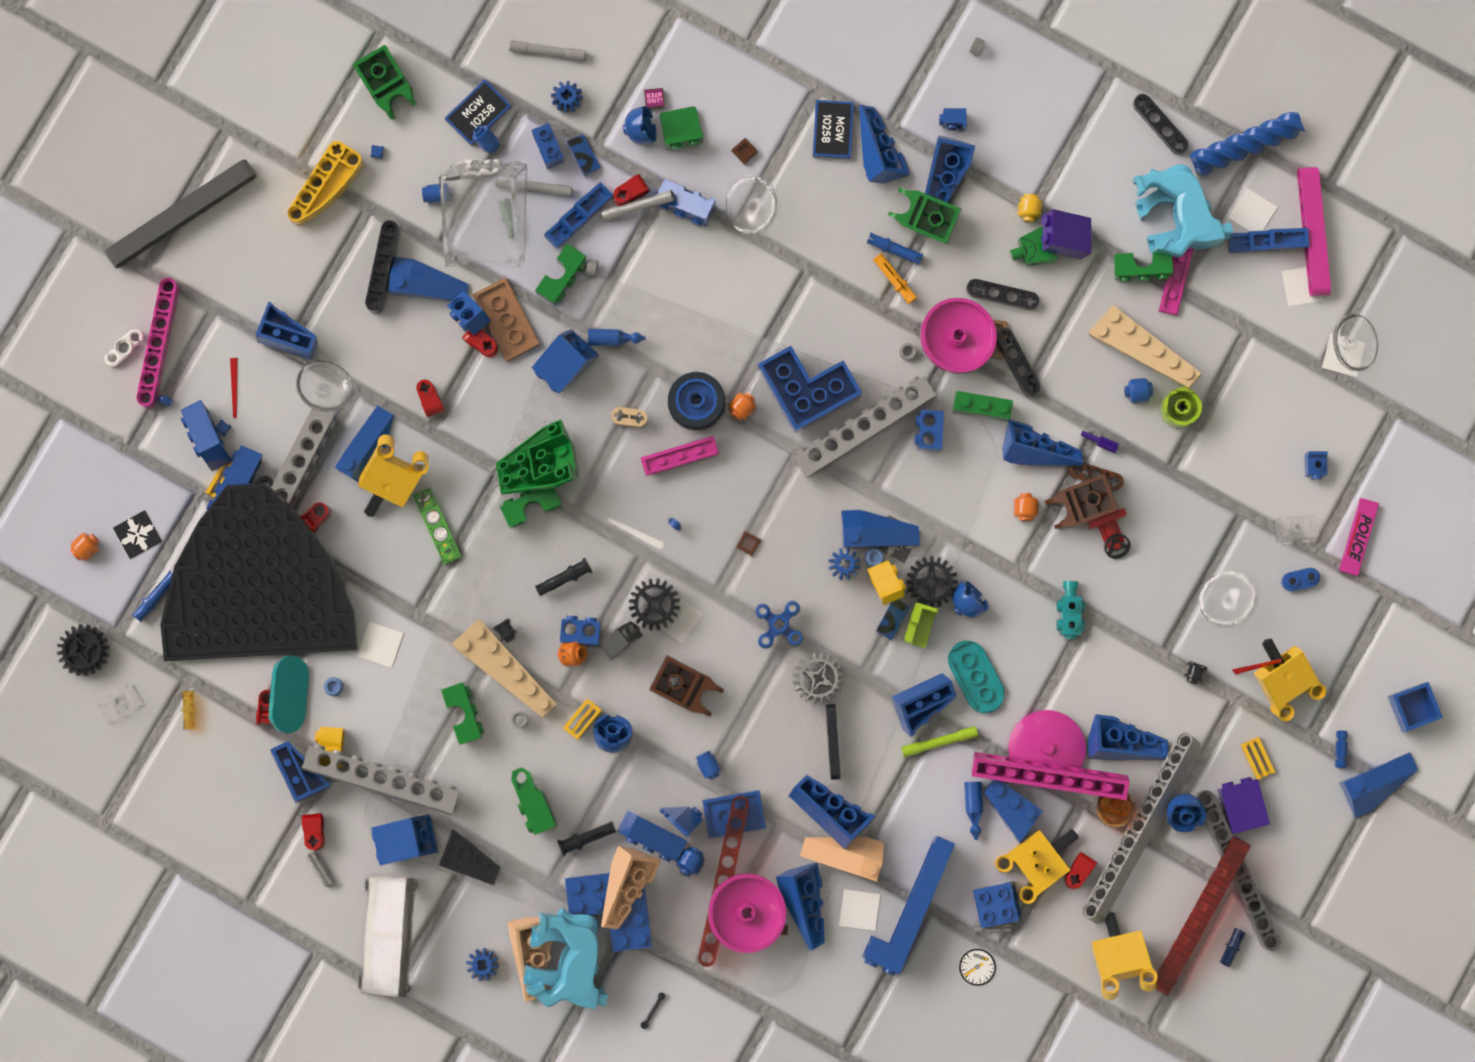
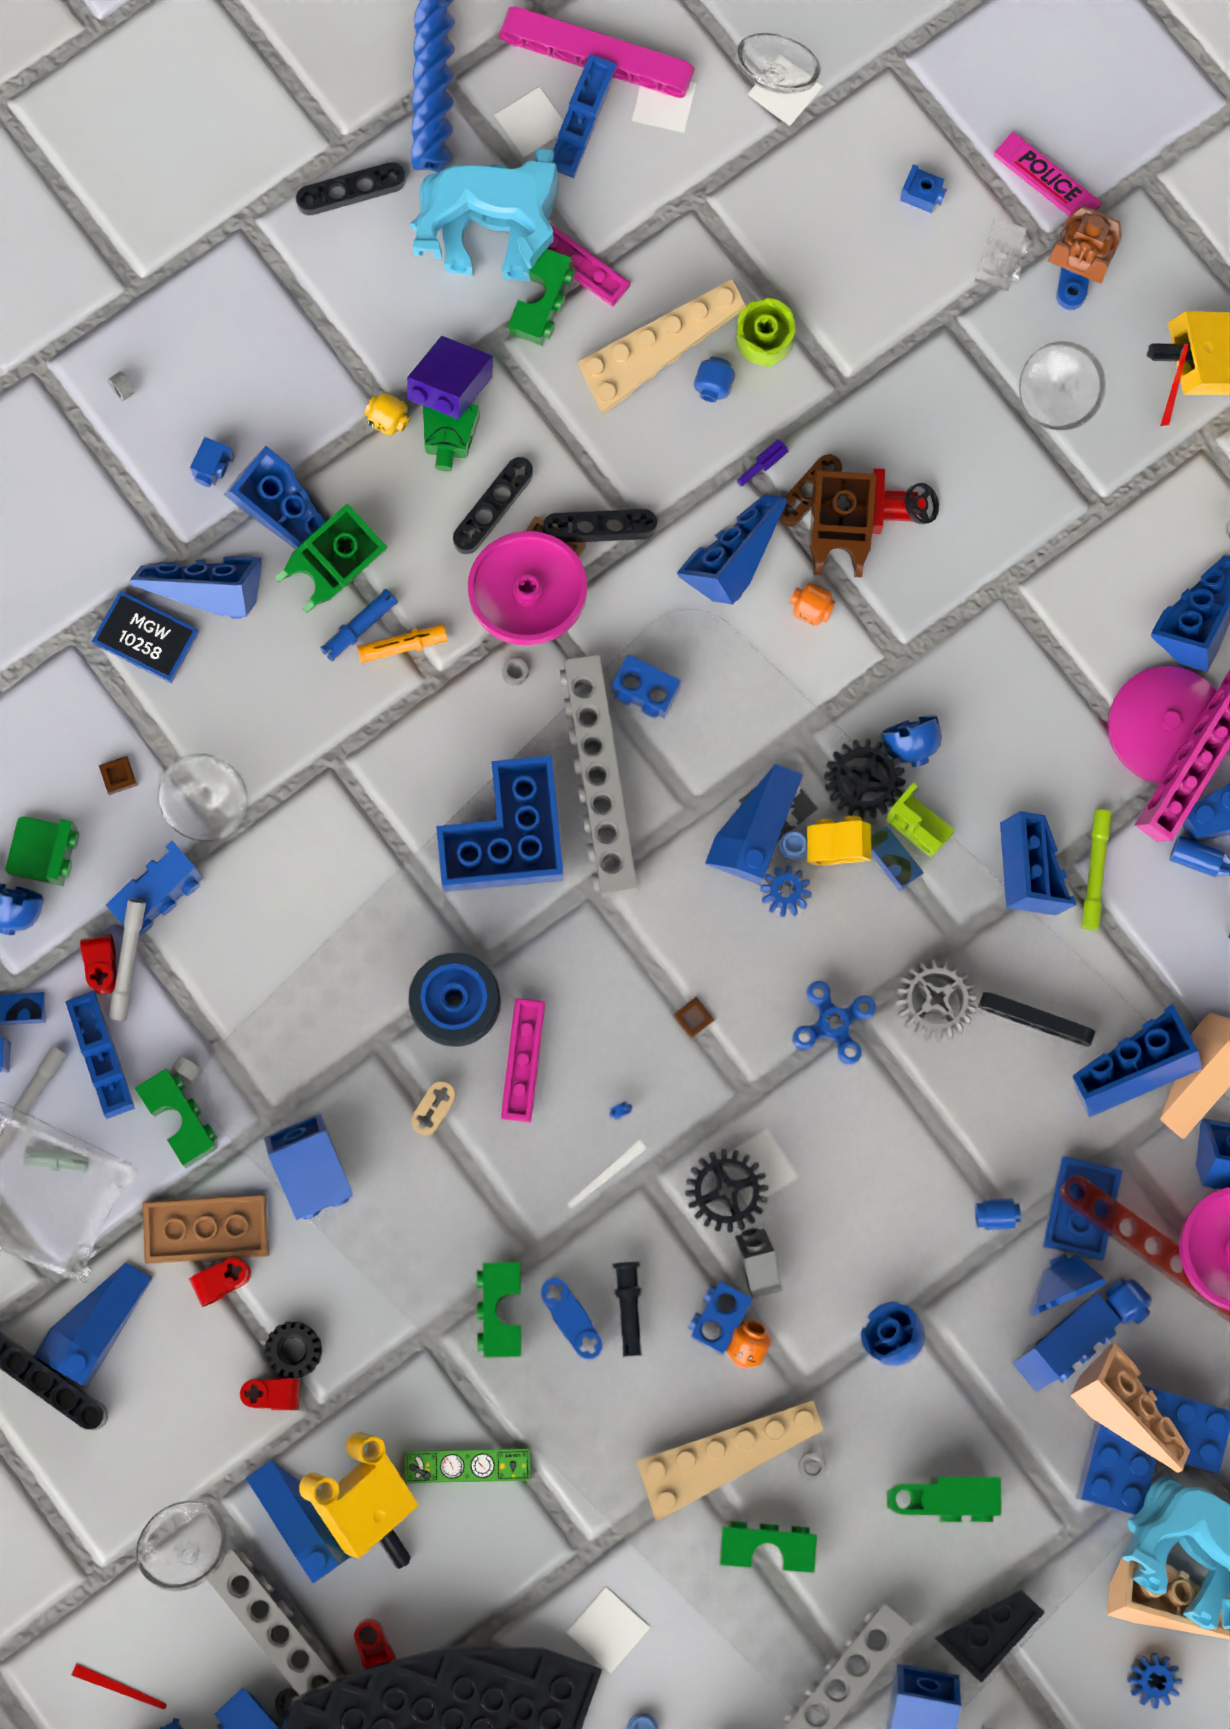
camera: 65 degrees left, 5 degrees down
(285, 334) = (75, 1572): blue wedge -> none
(467, 407) = (312, 1350): none -> black tyre
(468, 312) = (171, 1279): blue brick -> none
(505, 631) = (672, 1428): black brick -> none
(539, 462) = (443, 1269): green wedge -> none
(543, 547) = (571, 1318): none -> blue piece
(572, 732) = (862, 1394): yellow tile -> none
(577, 841) = (1029, 1455): black pin -> none
(612, 337) = (304, 1082): blue wheel -> none
(690, 688) = (875, 1194): reddish brown brick -> none
(742, 406) = (491, 937): orange head -> none
(976, 676) = (1024, 779): teal tile -> none
(984, 405) = (642, 597): green arch -> none
(1067, 614) = (990, 614): teal brick -> none
(1195, 672) = (1146, 476): black brick -> none
(1324, 577) = (1087, 243): none -> dark orange brick

